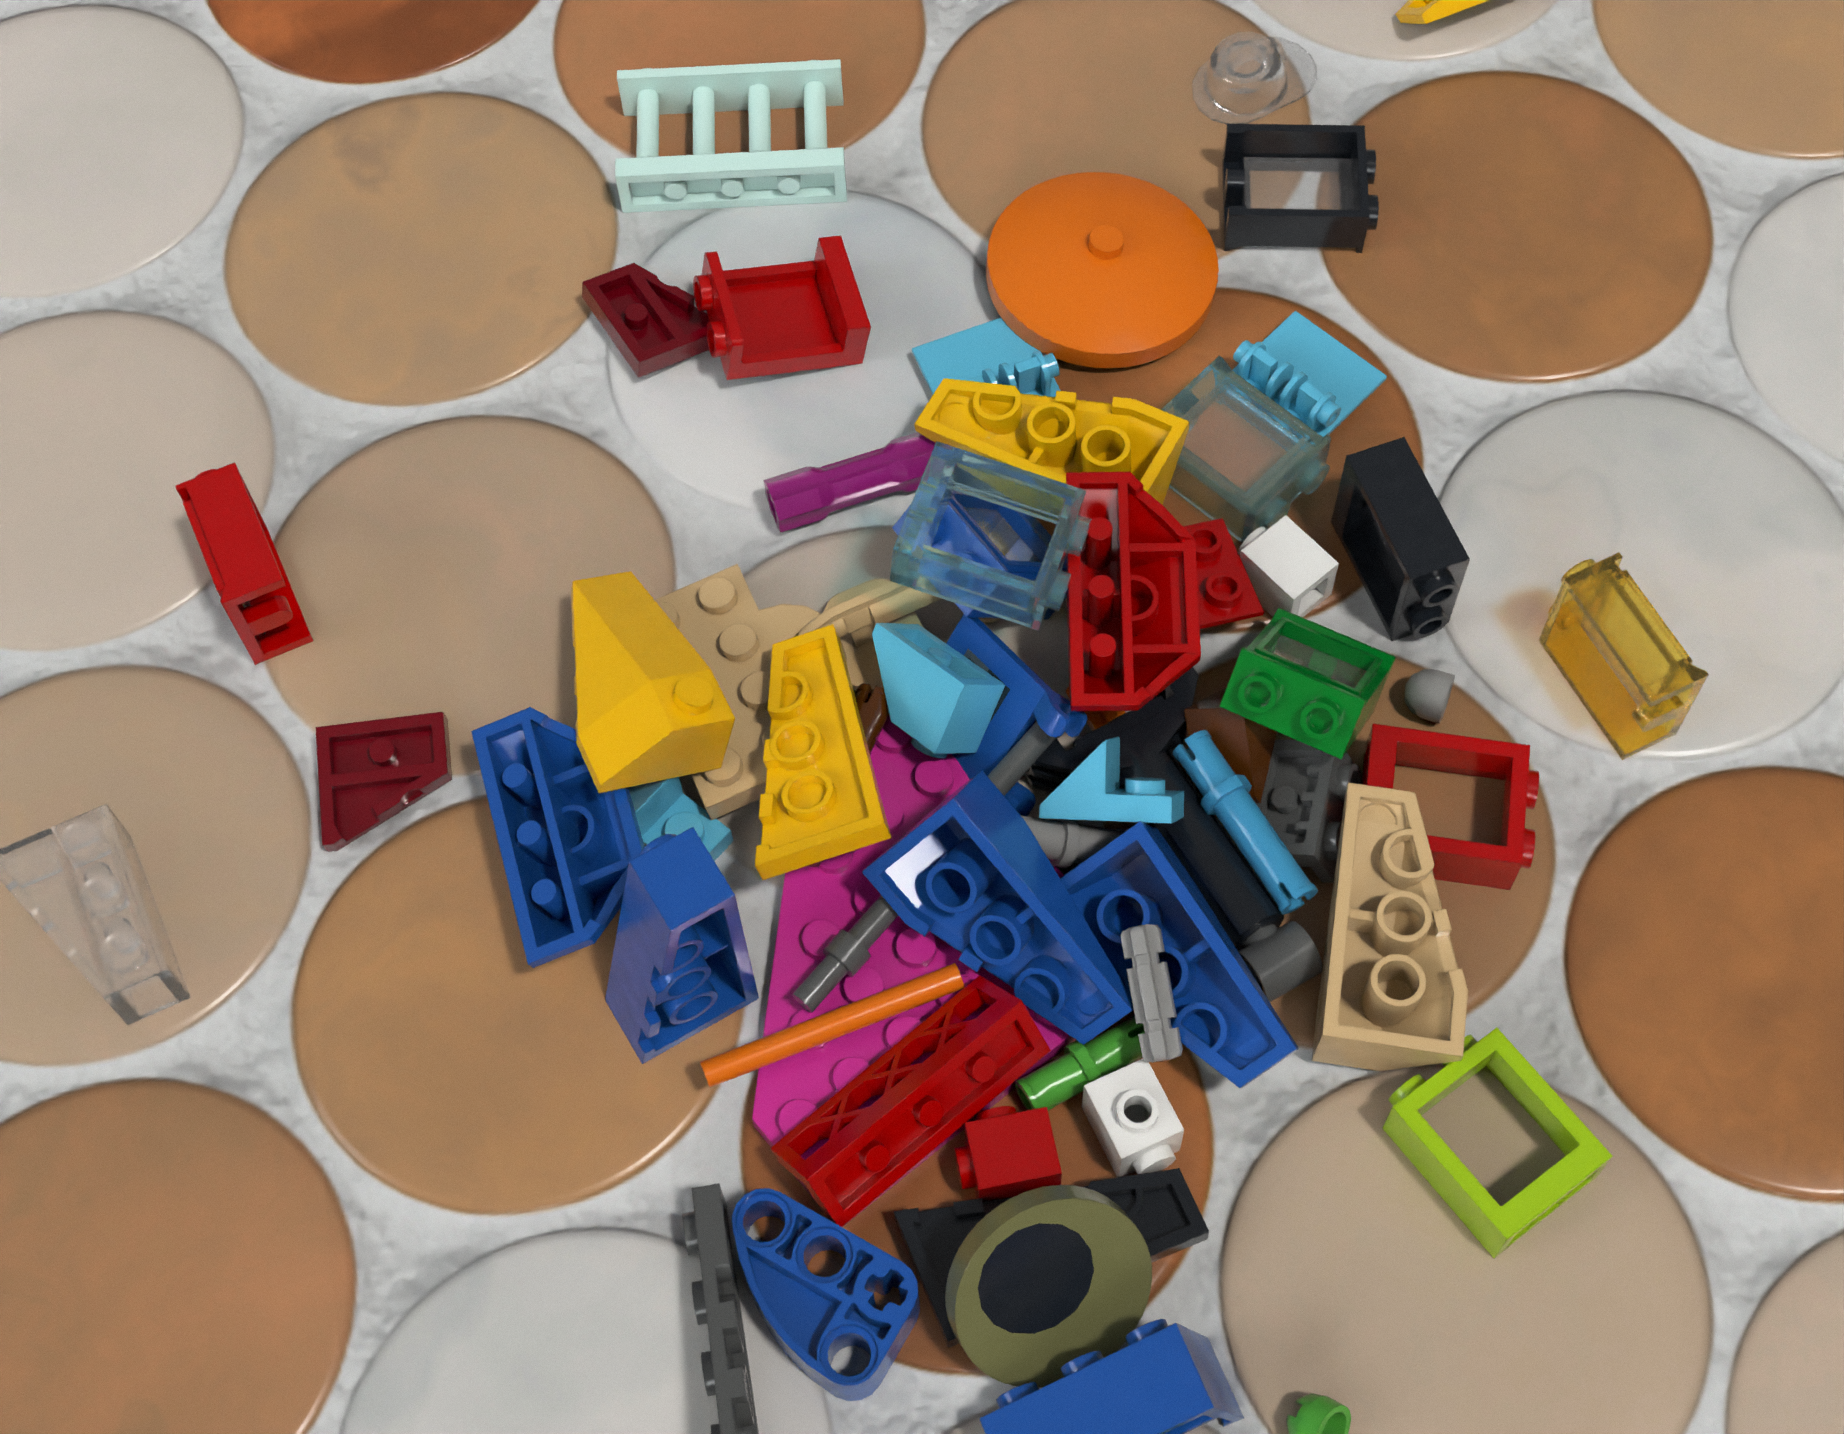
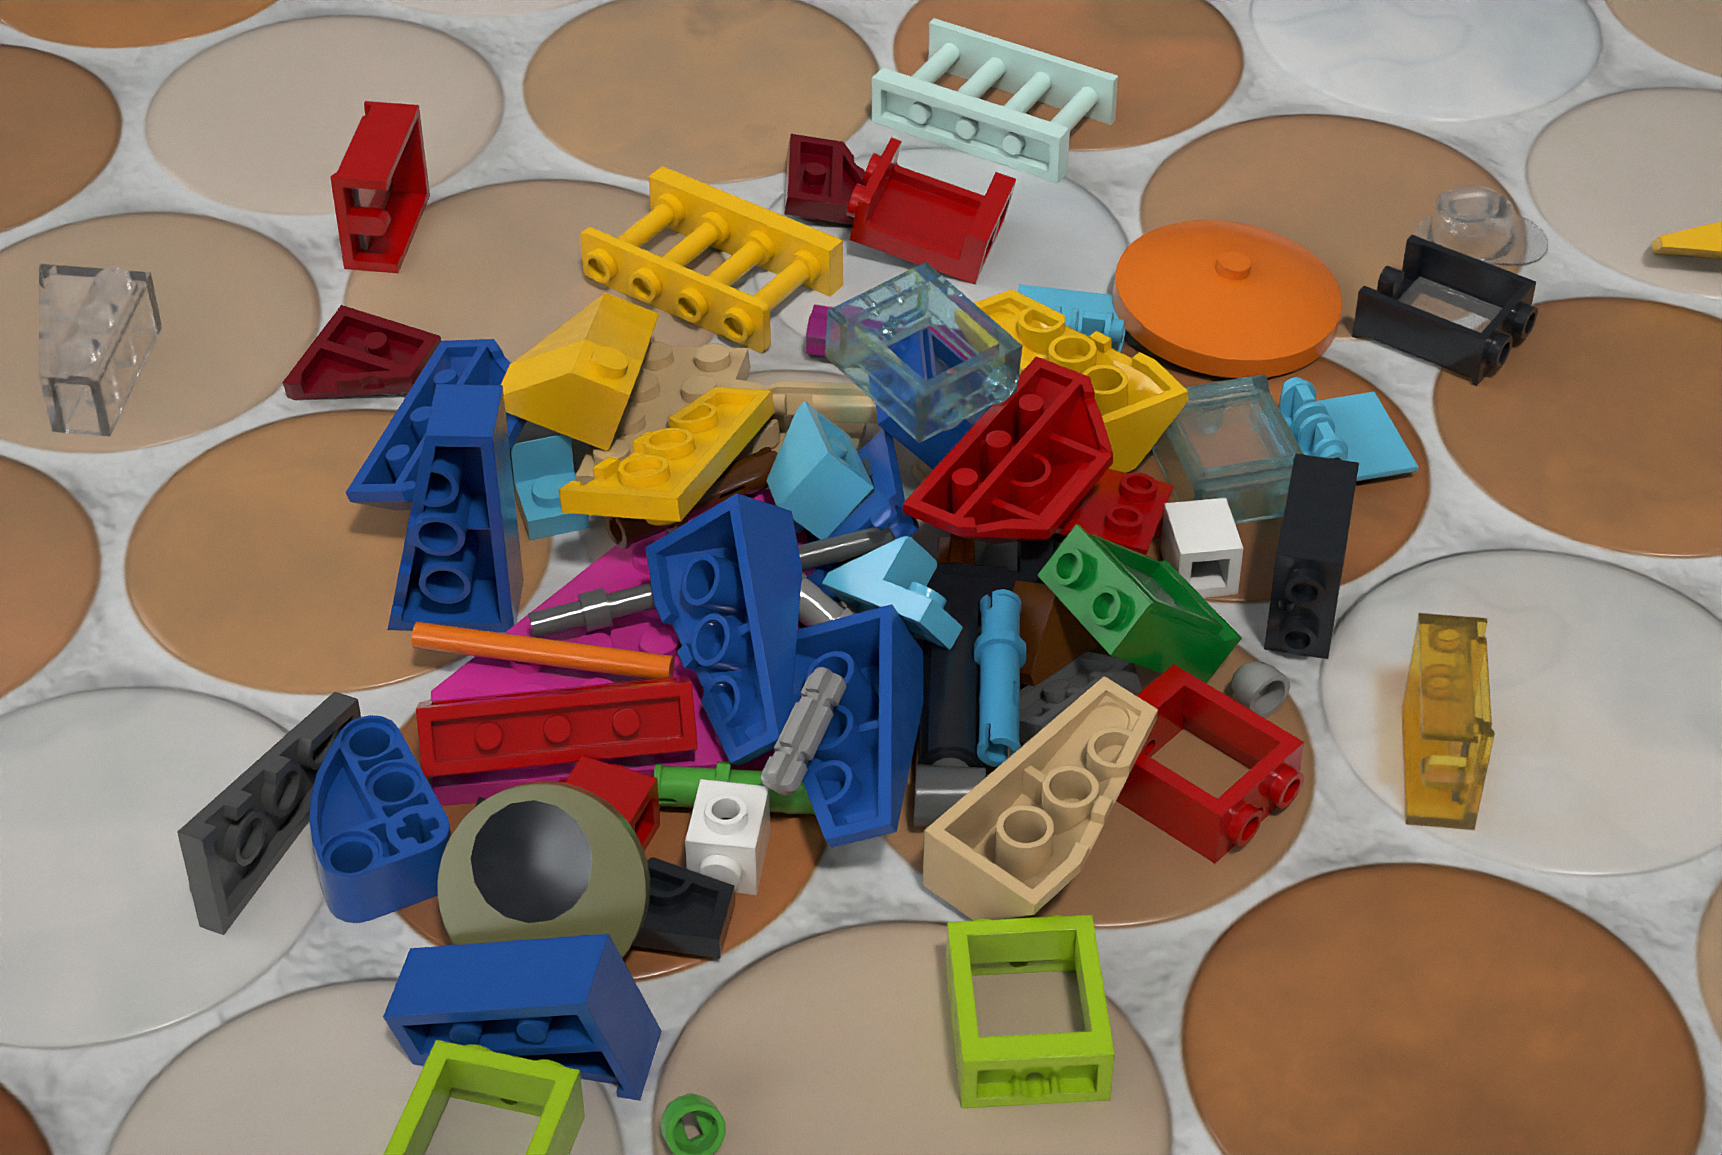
camera: 30 degrees right, 20 degrees down
(617, 421) = (726, 223): none -> yellow fence

